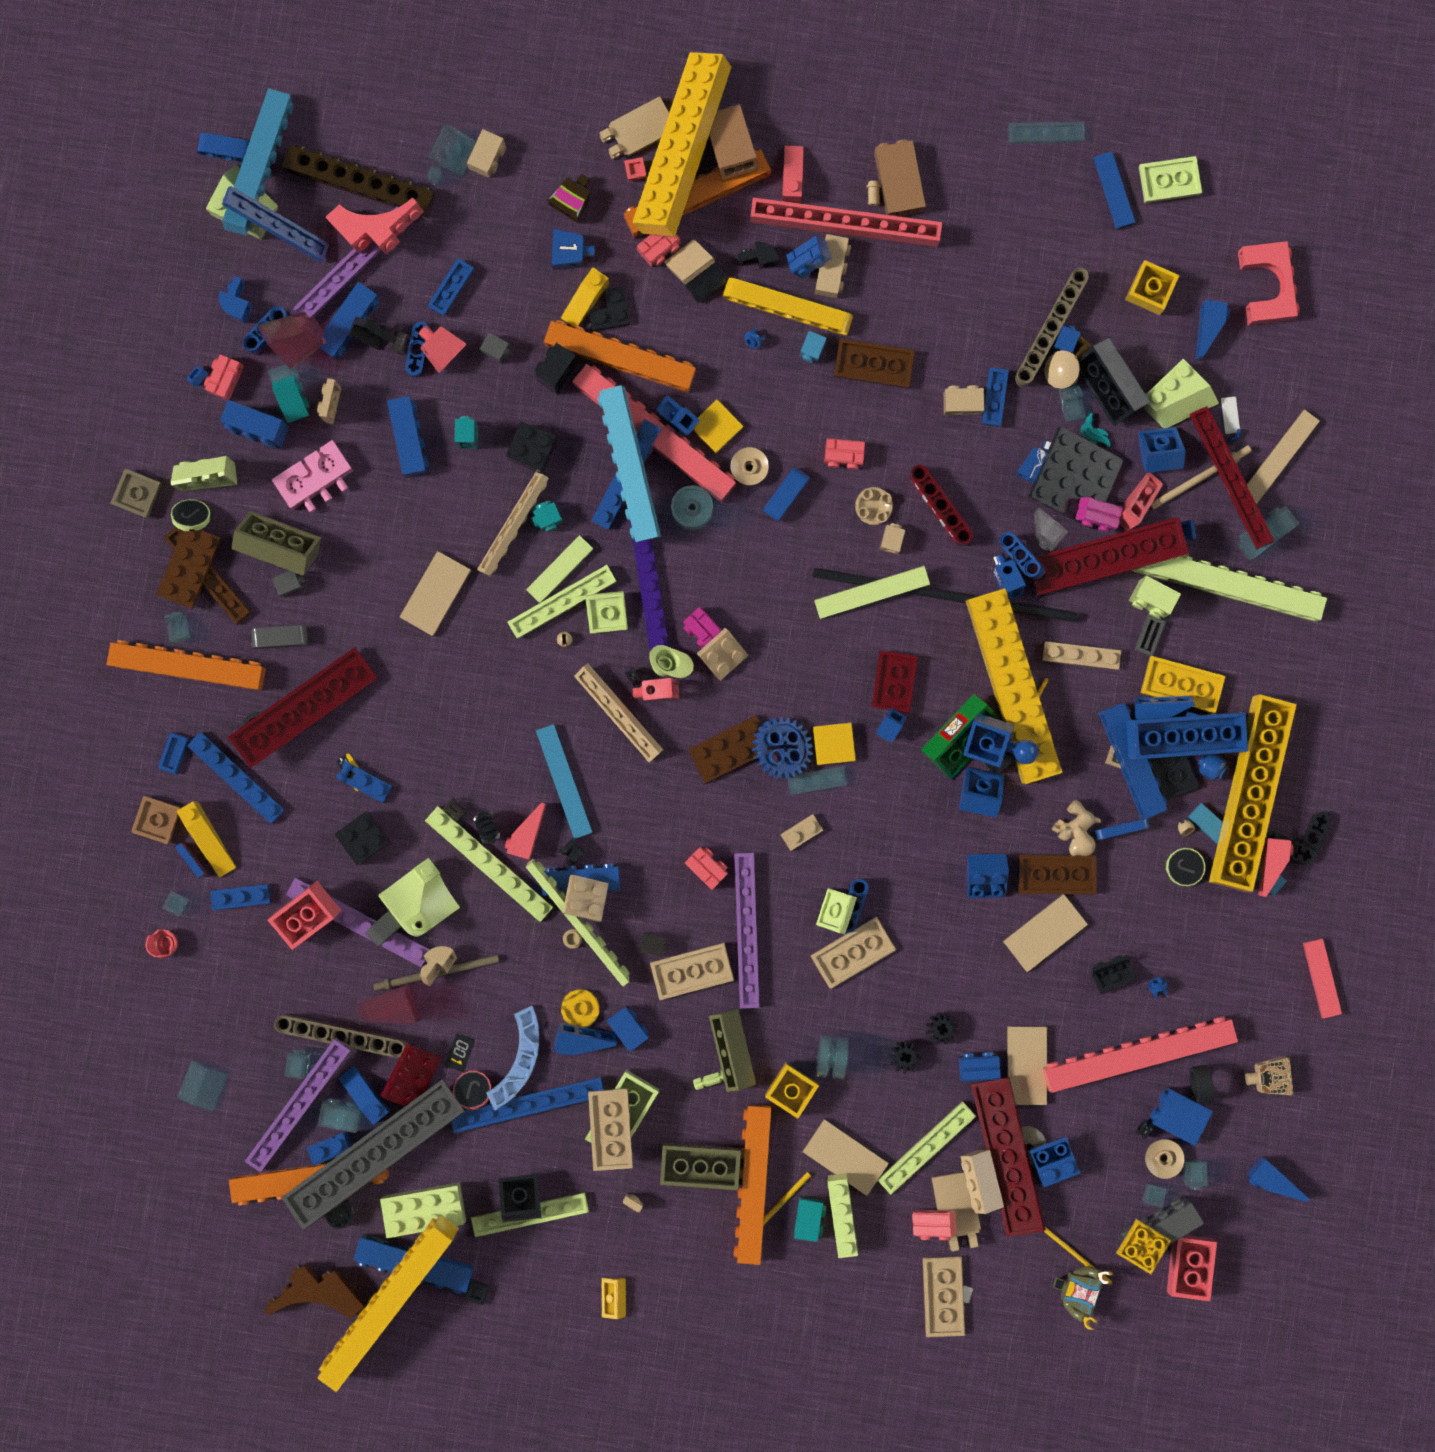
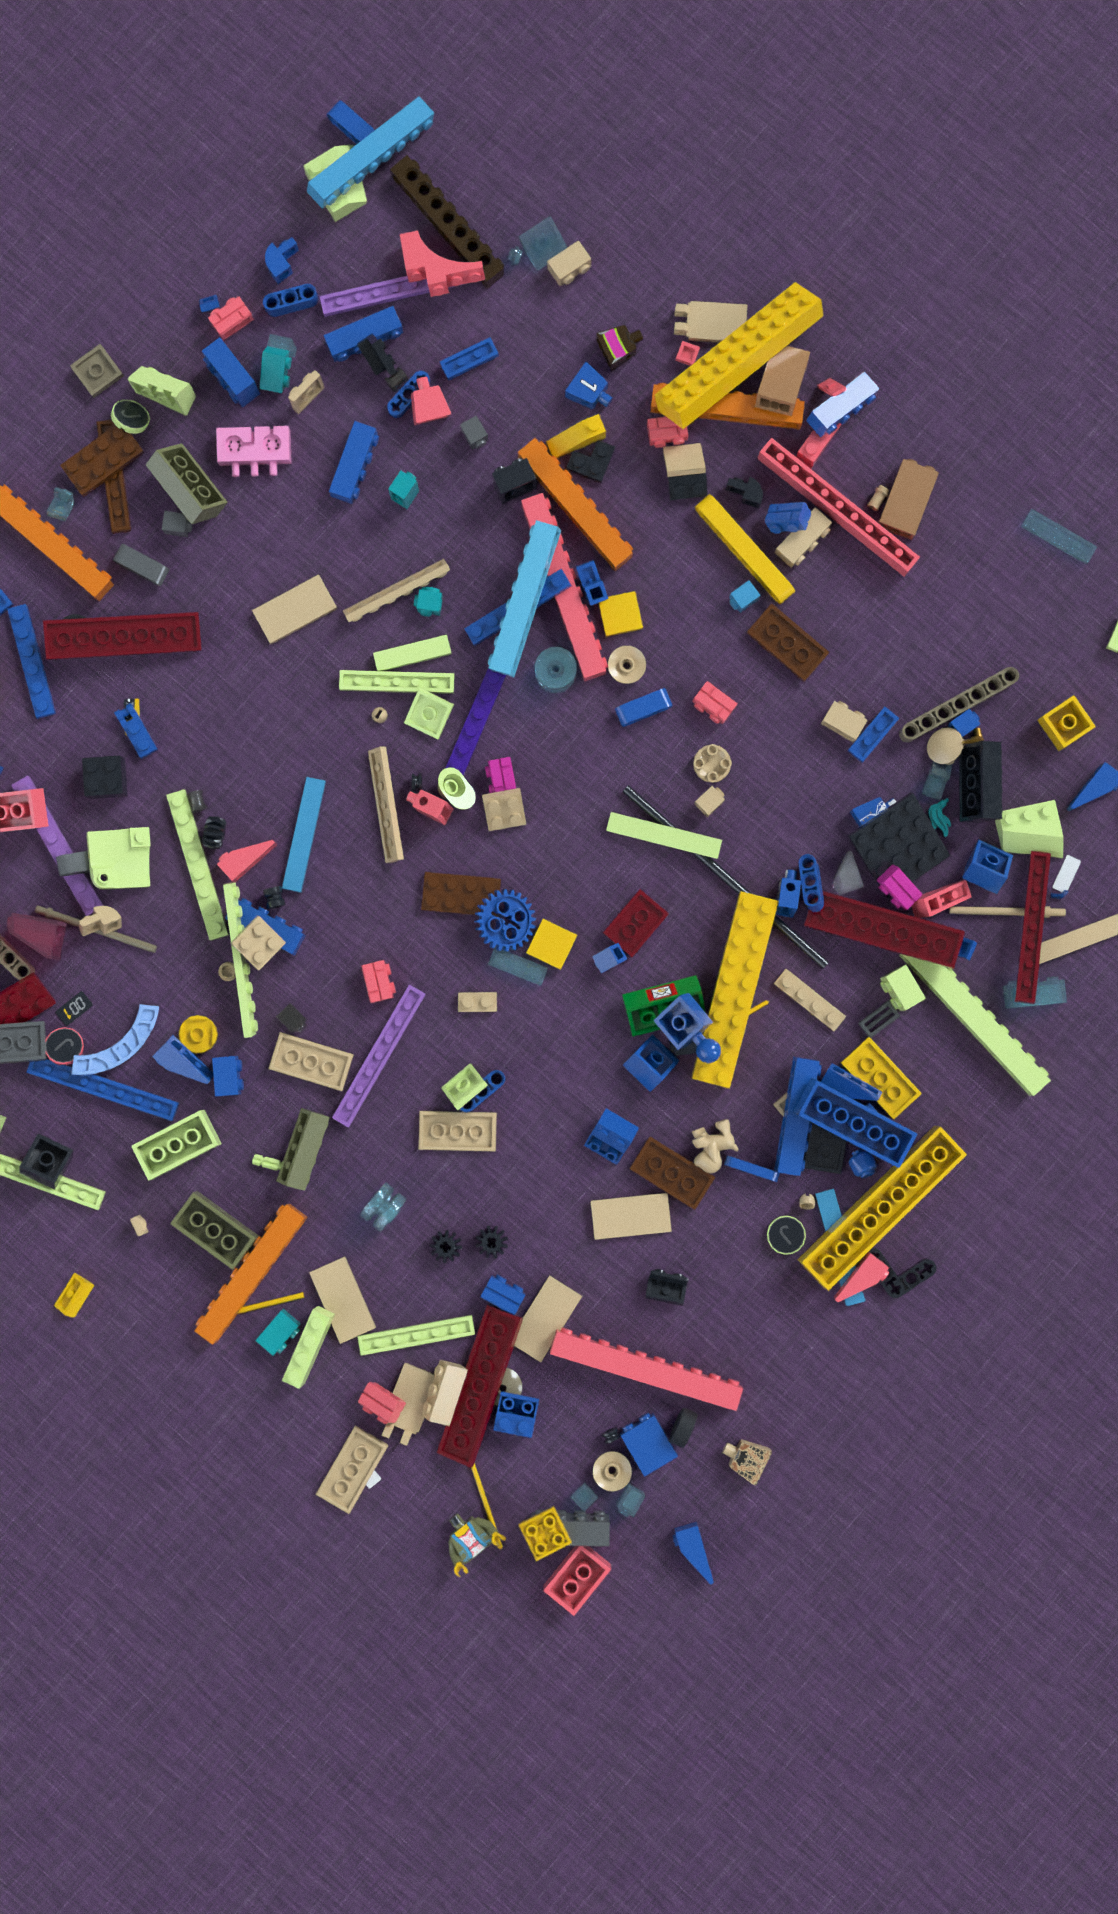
camera: 35 degrees right, 0 degrees up
(275, 223) = (352, 212): blue plate -> none
(293, 337) = (308, 318): clear pink slope -> none
(531, 447) = (452, 535): black brick -> none
(610, 1129) = (156, 1150): tan plate -> none
(752, 339) = (697, 559): blue plate -> none
(776, 123) = (831, 387): none -> coral piece
(791, 1090) = (331, 1214): yellow brick -> none
(794, 134) = (840, 407): none -> brick
(939, 495) = (772, 789): dark red beam -> none
(1114, 190) = (1086, 621): blue tile -> none
(1156, 985) = (698, 1319): blue plate -> none
(1322, 978) = (843, 1402): coral tile -> none

